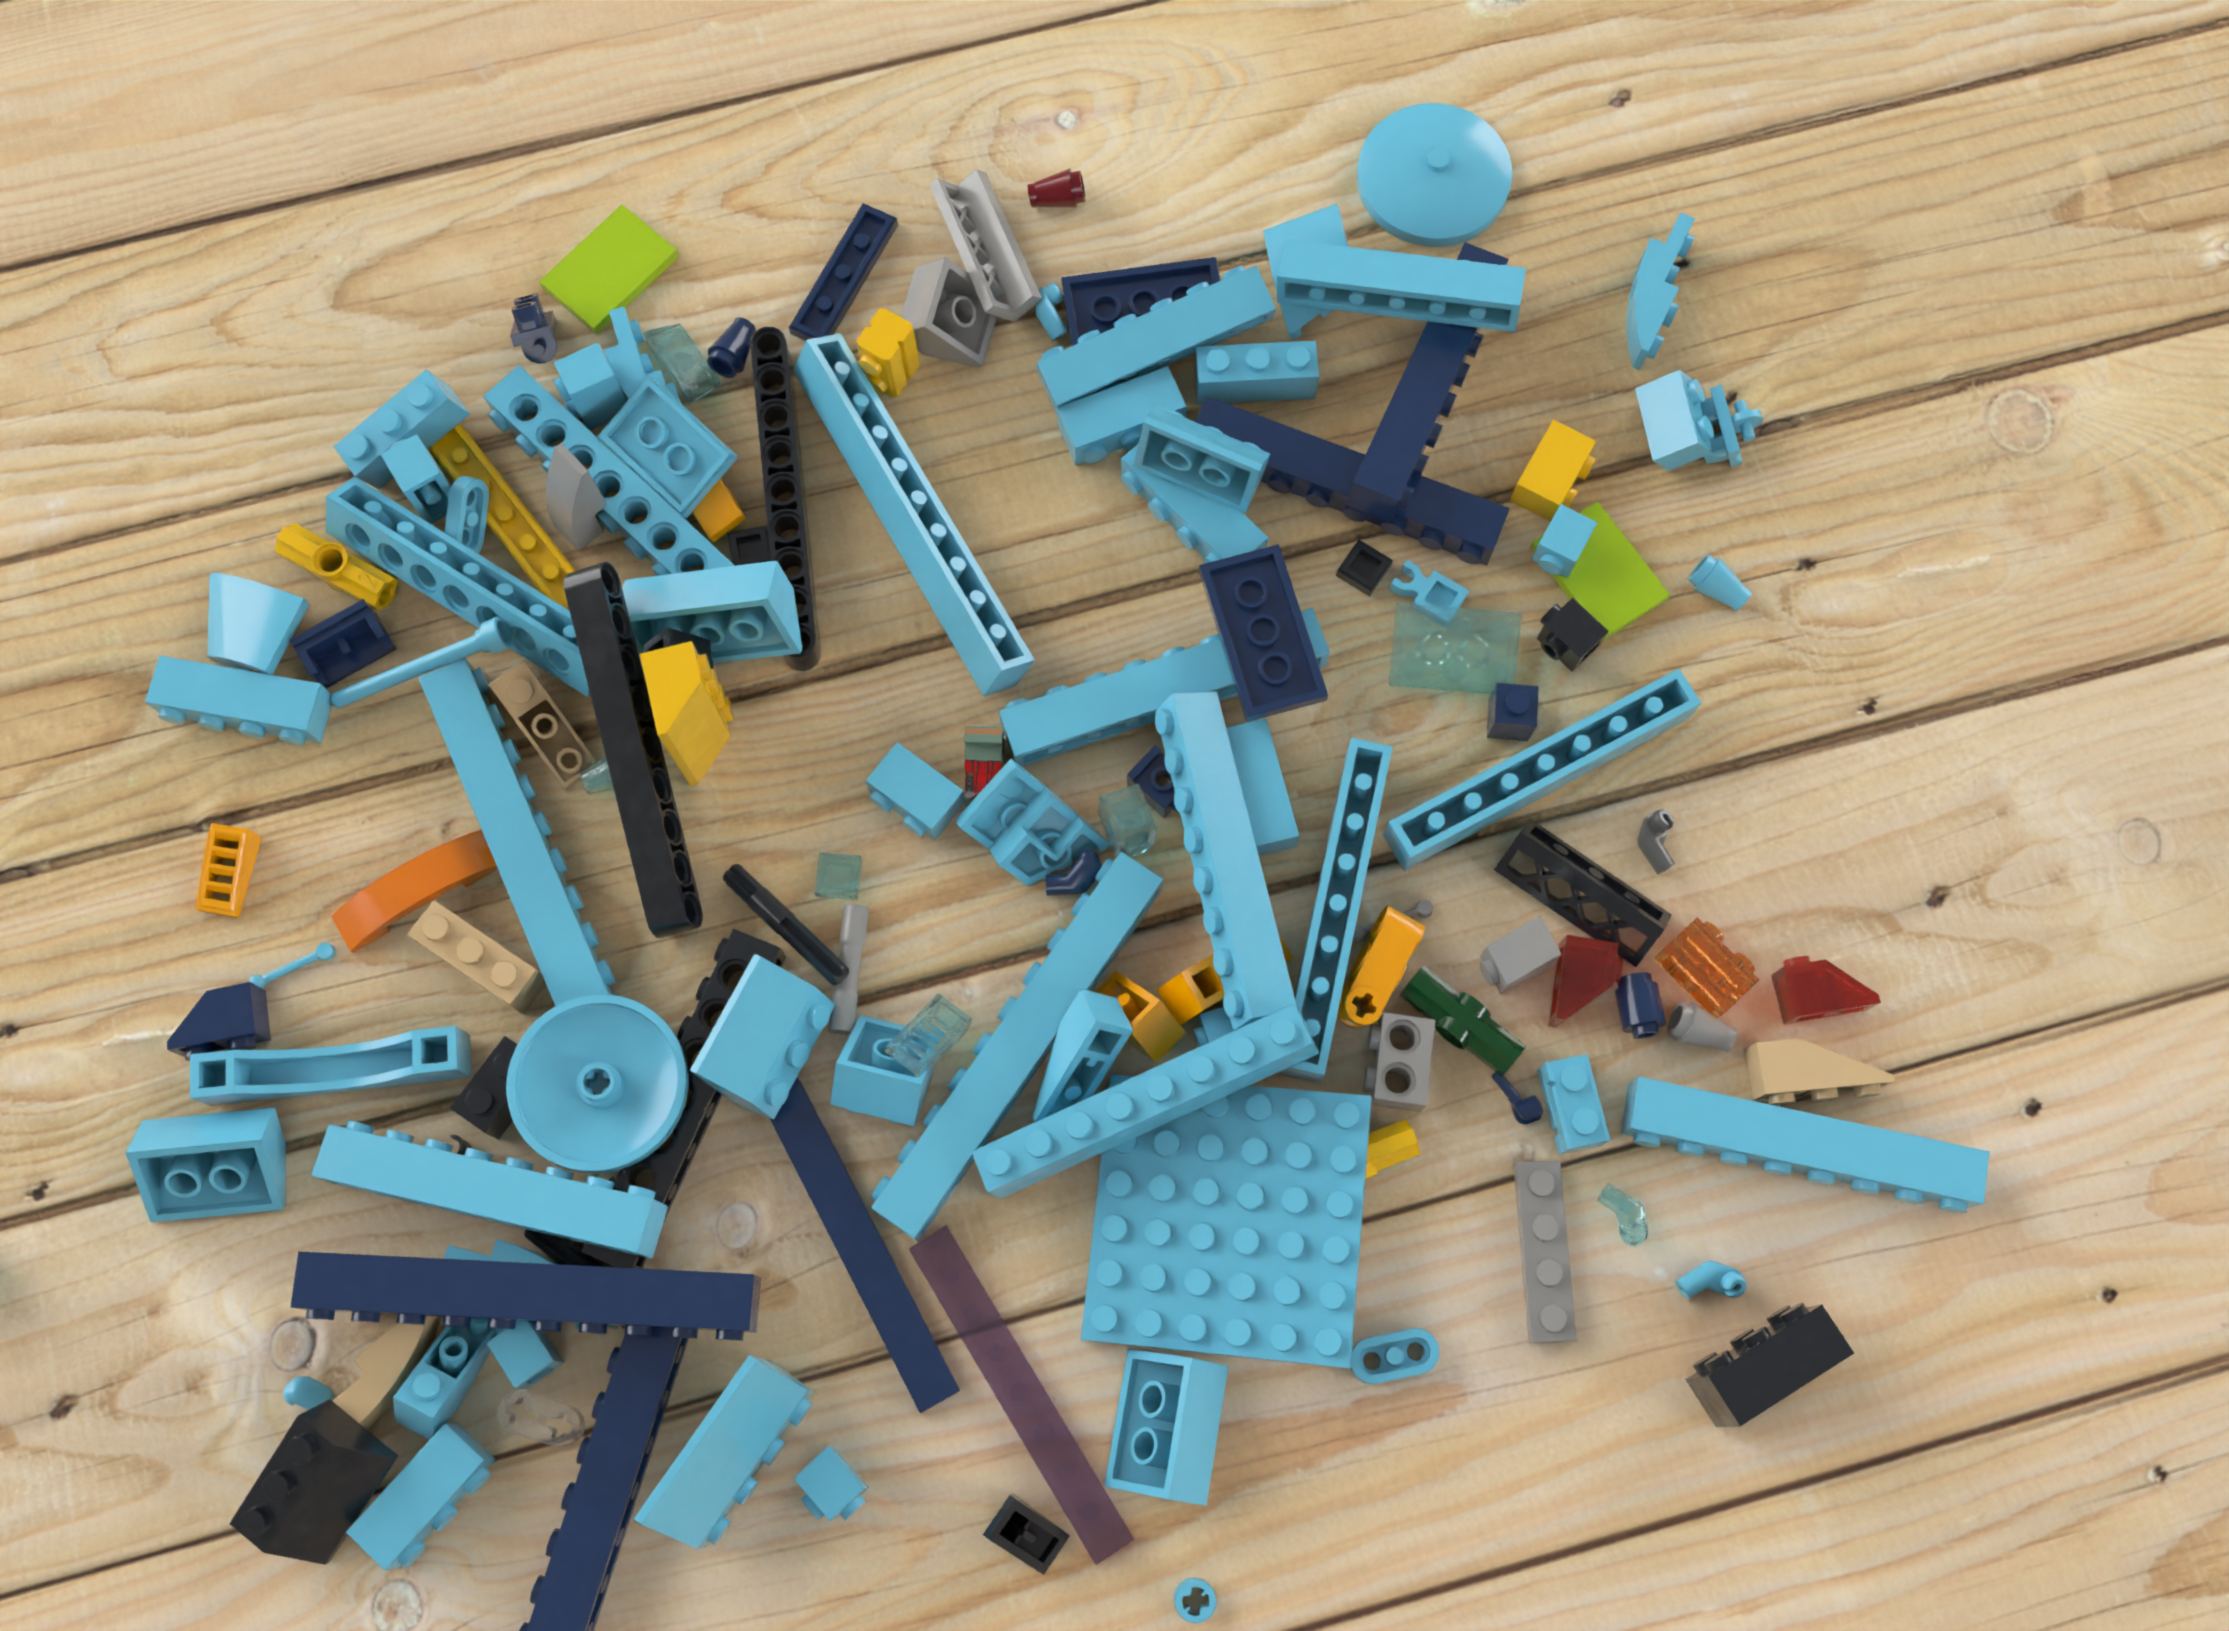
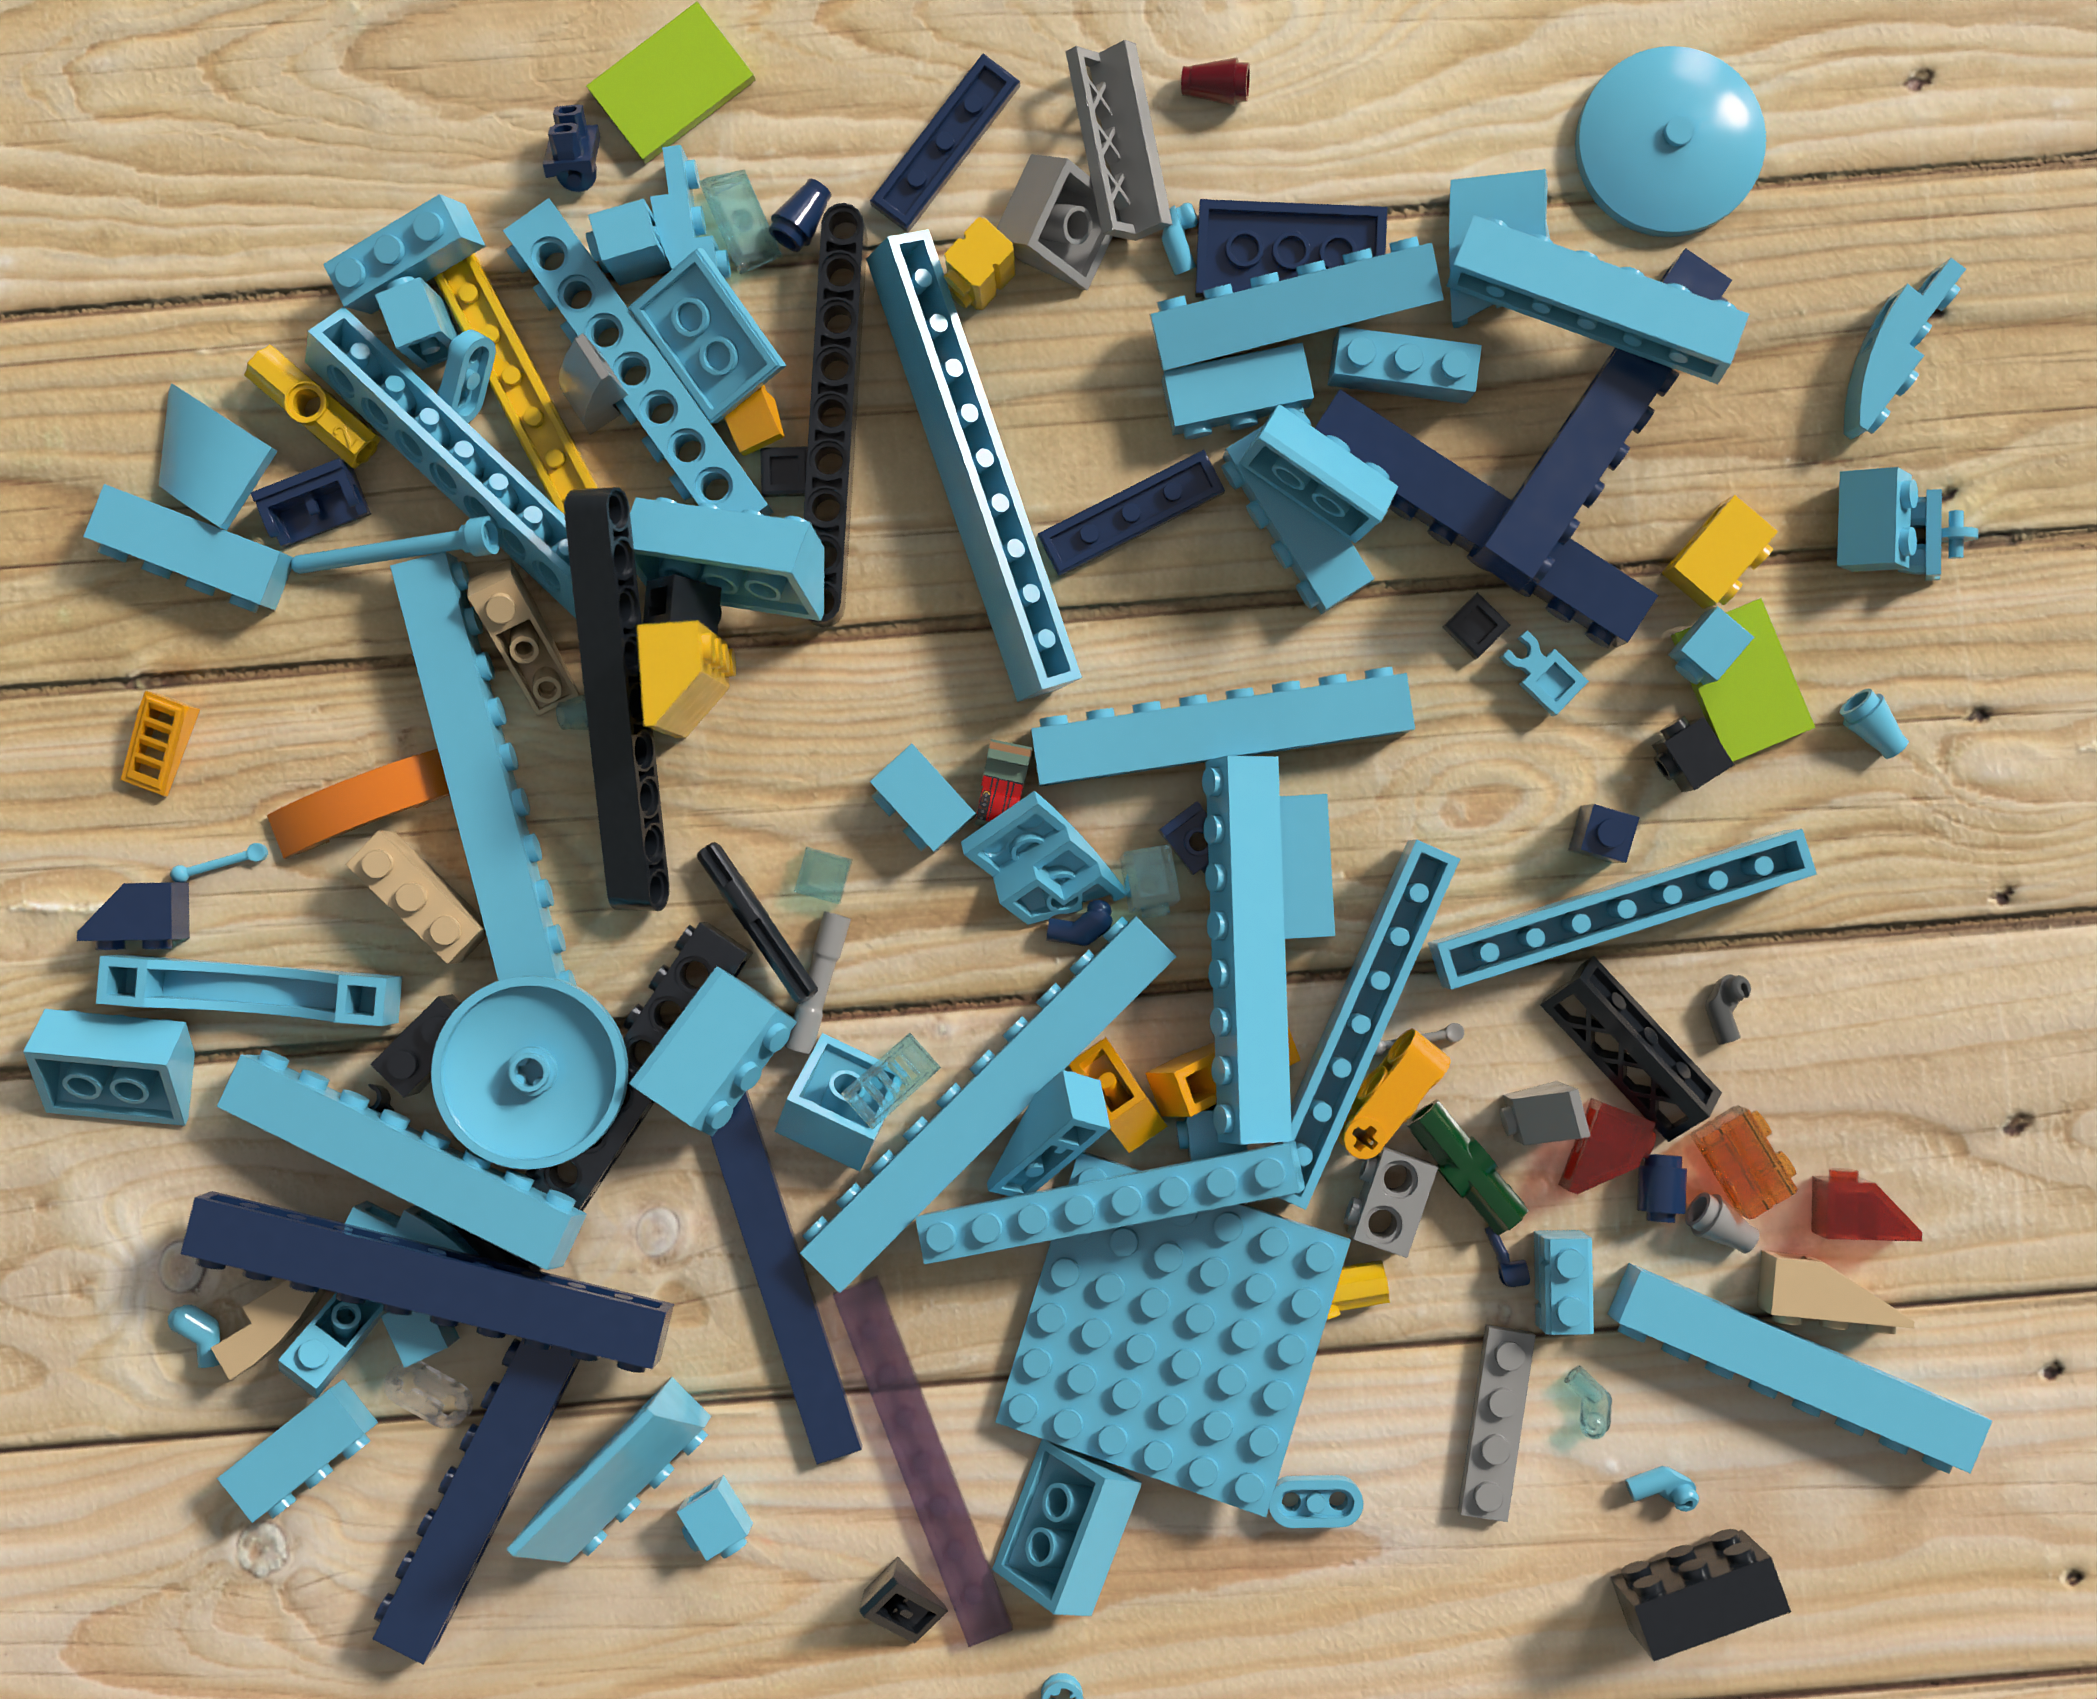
camera: 15 degrees right, 15 degrees up
(314, 1486) = (190, 1426): black slope -> none
(1052, 531) = (1131, 513): none -> dark blue tile
(1263, 633) = (1344, 697): dark blue plate -> none
(1453, 648) = (1556, 746): clear light blue plate -> none

